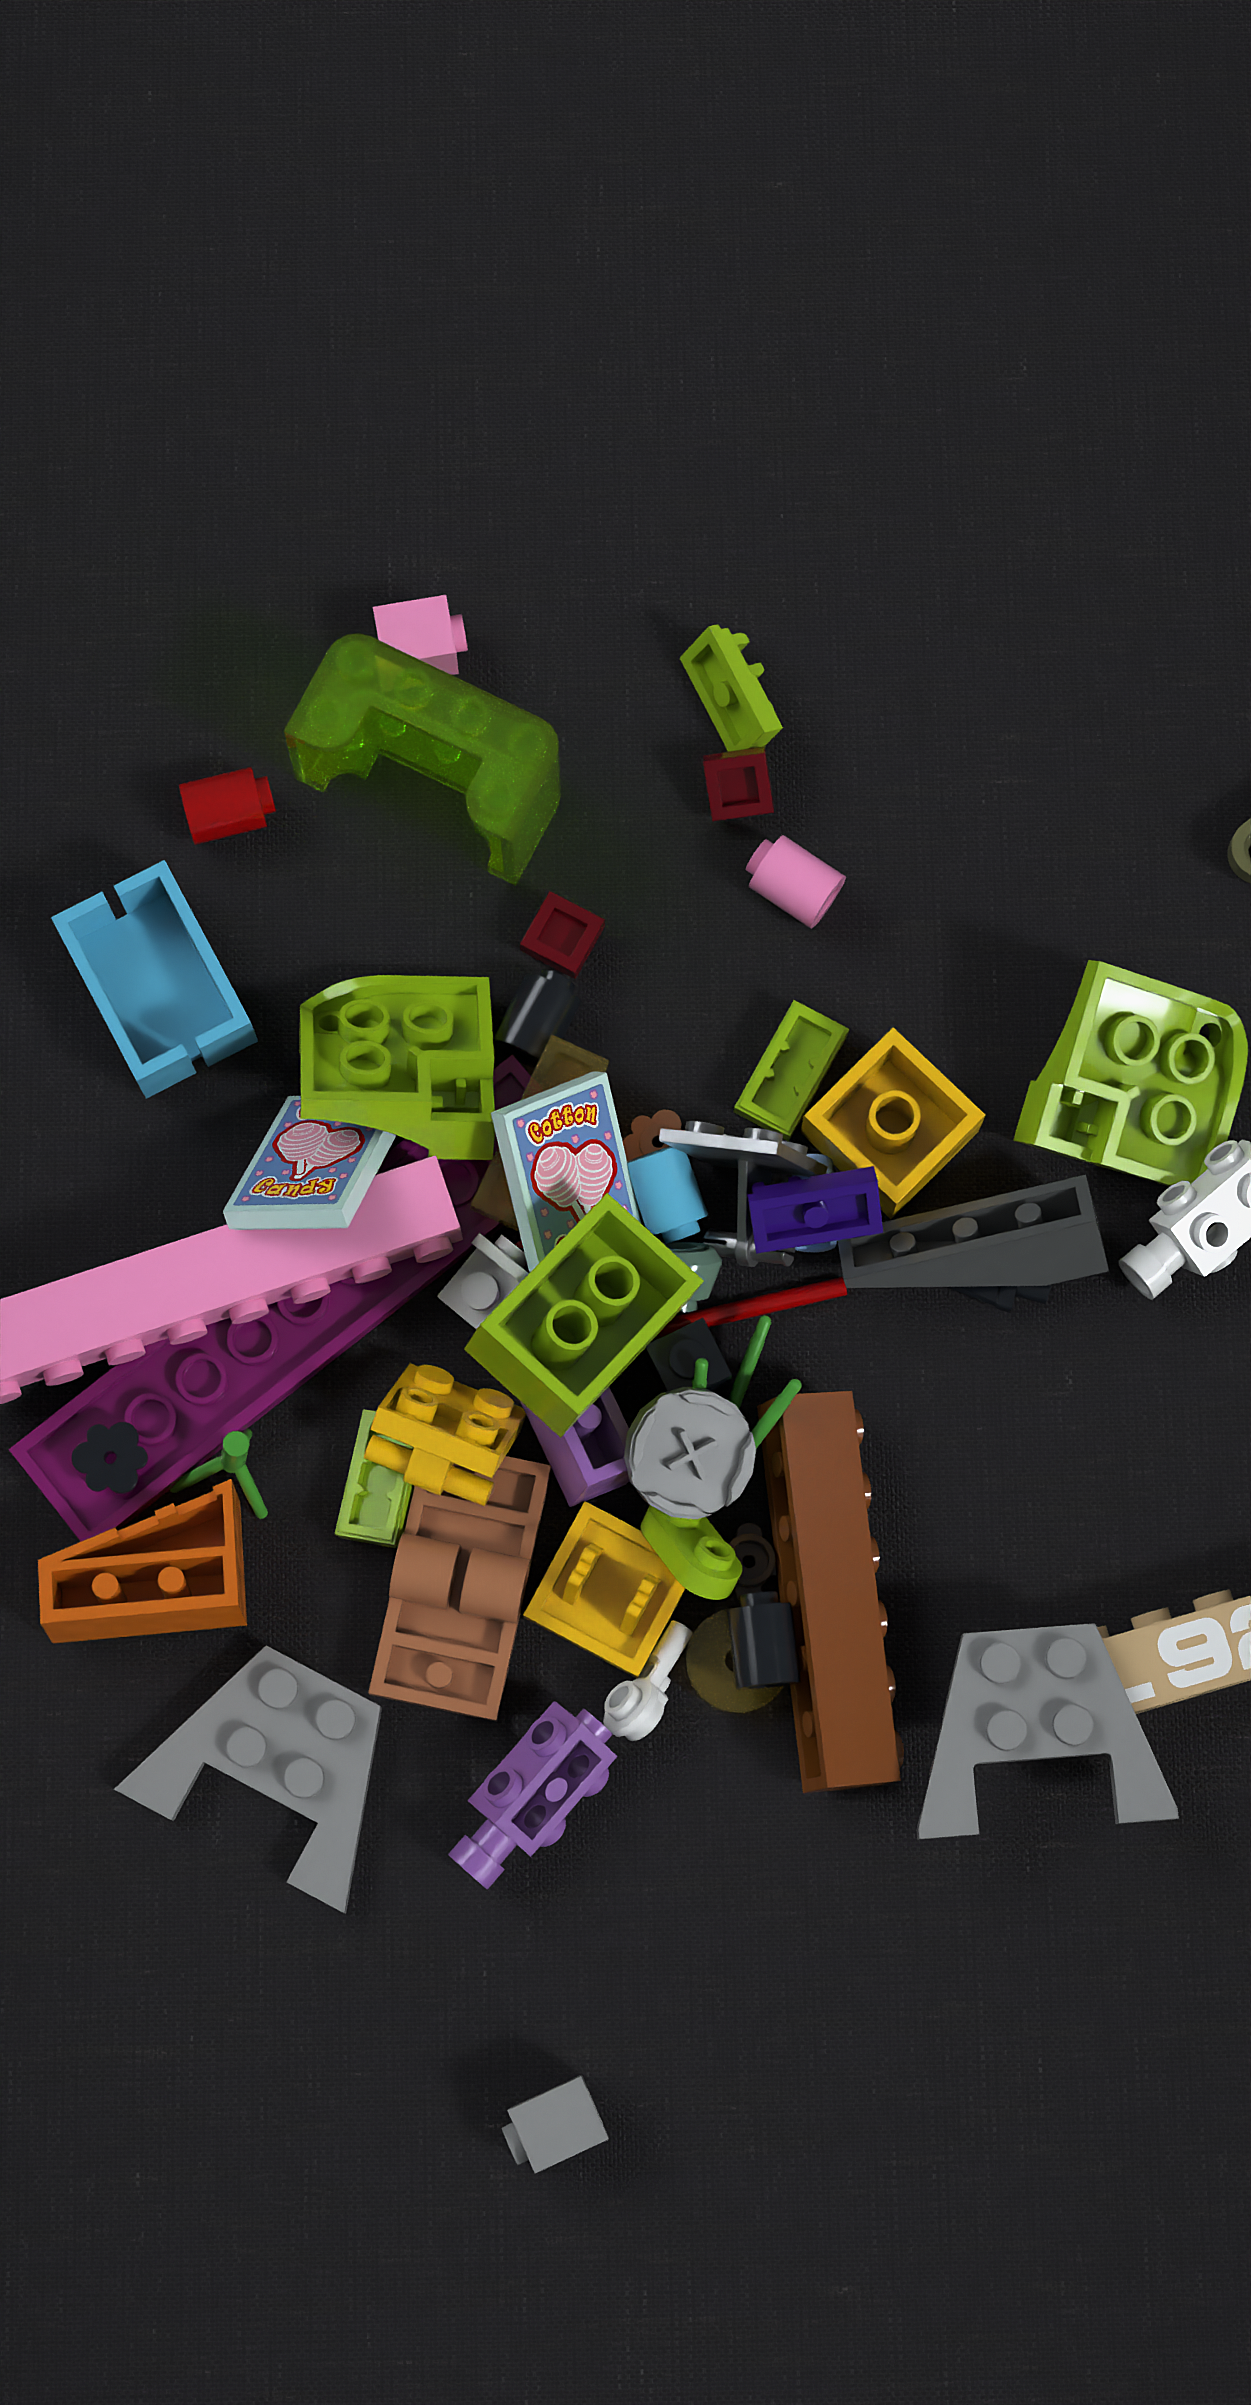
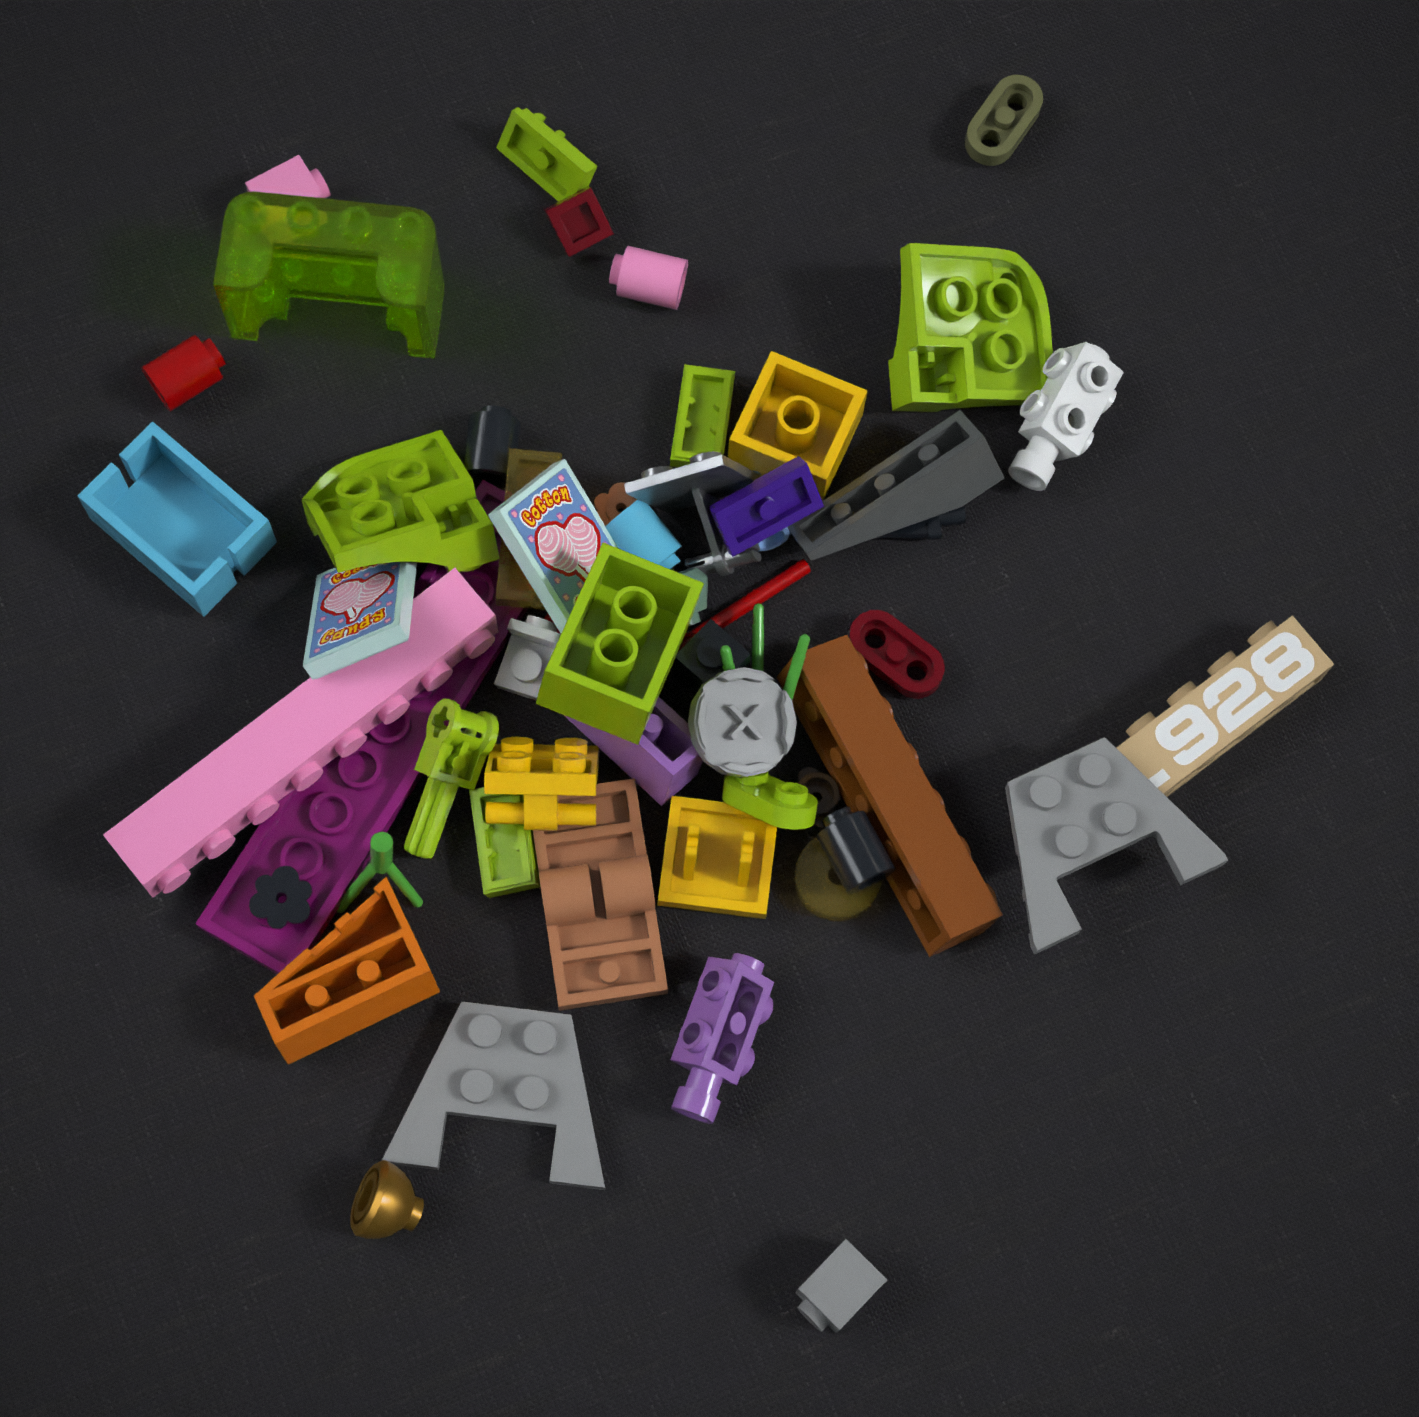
camera: 25 degrees left, 5 degrees down
(99, 1838) = (384, 1203): none -> pearl gold brick
(351, 1369) = (450, 761): none -> lime connector
(562, 935) = (486, 378): dark red plate -> none
(638, 1705) = (776, 936): white plate -> none
(905, 1430) = (900, 652): none -> dark red plate

